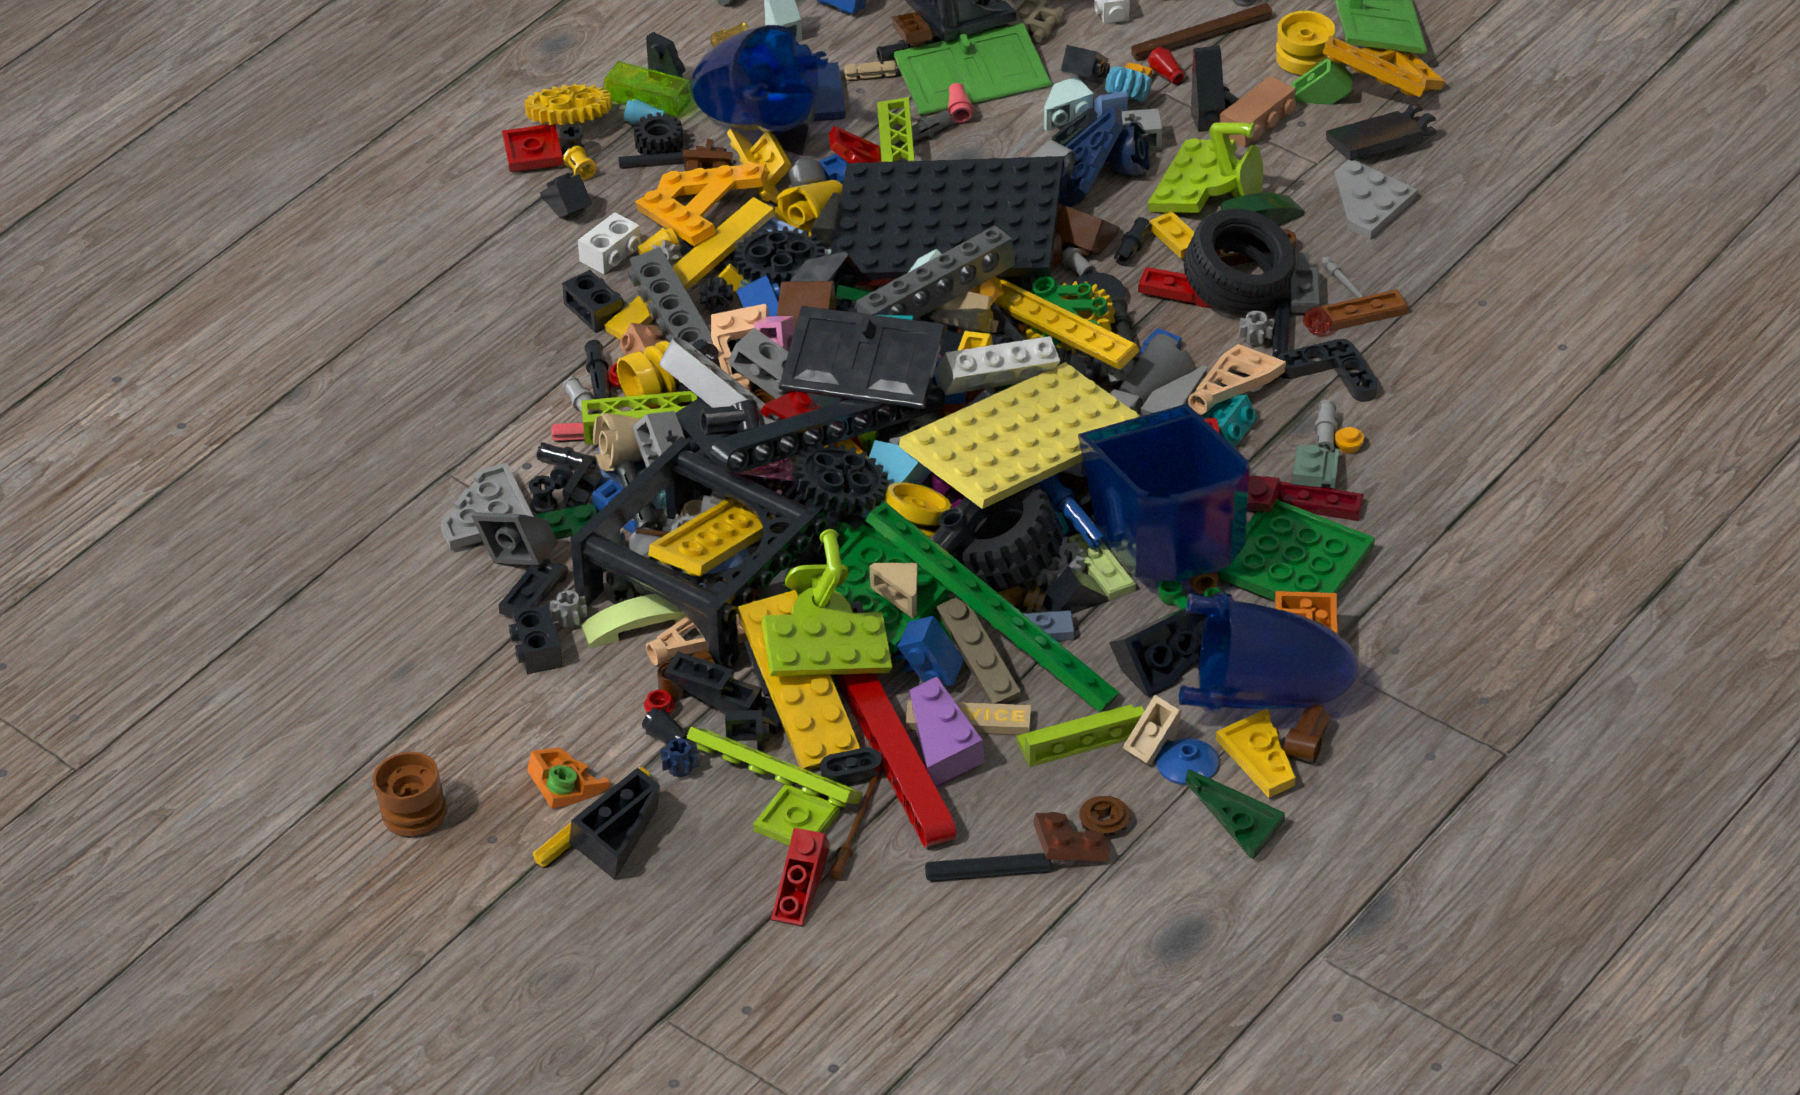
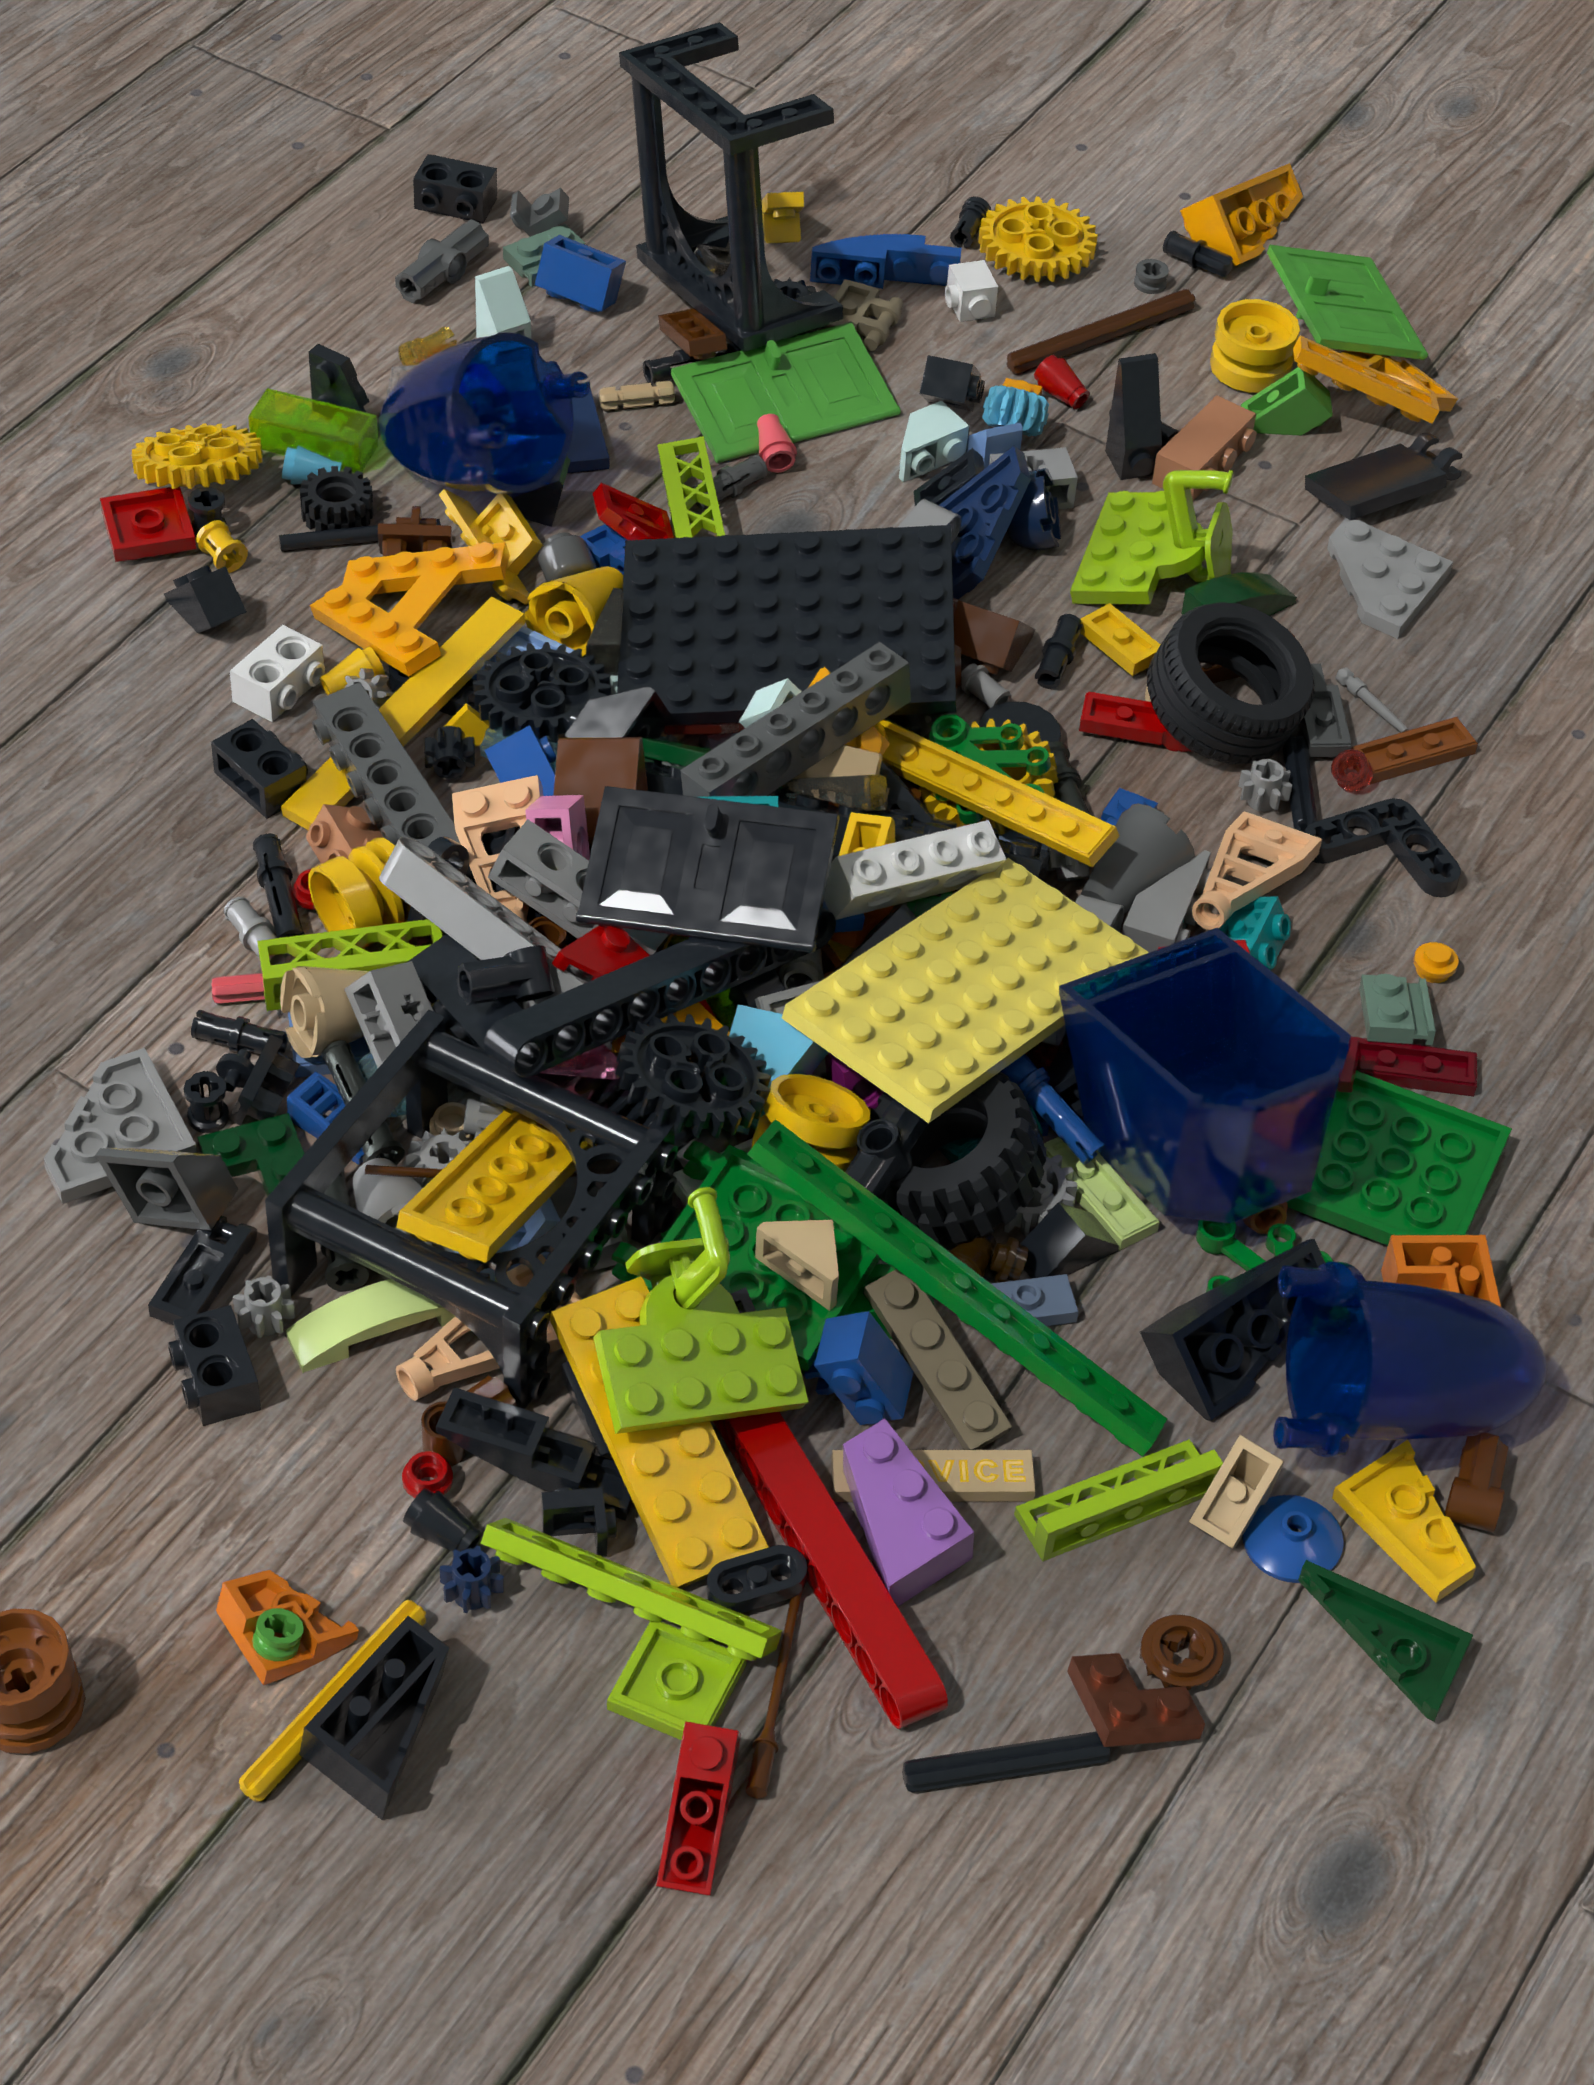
camera: 10 degrees left, 5 degrees up
(1326, 425) = (1398, 940): light grey pin -> none

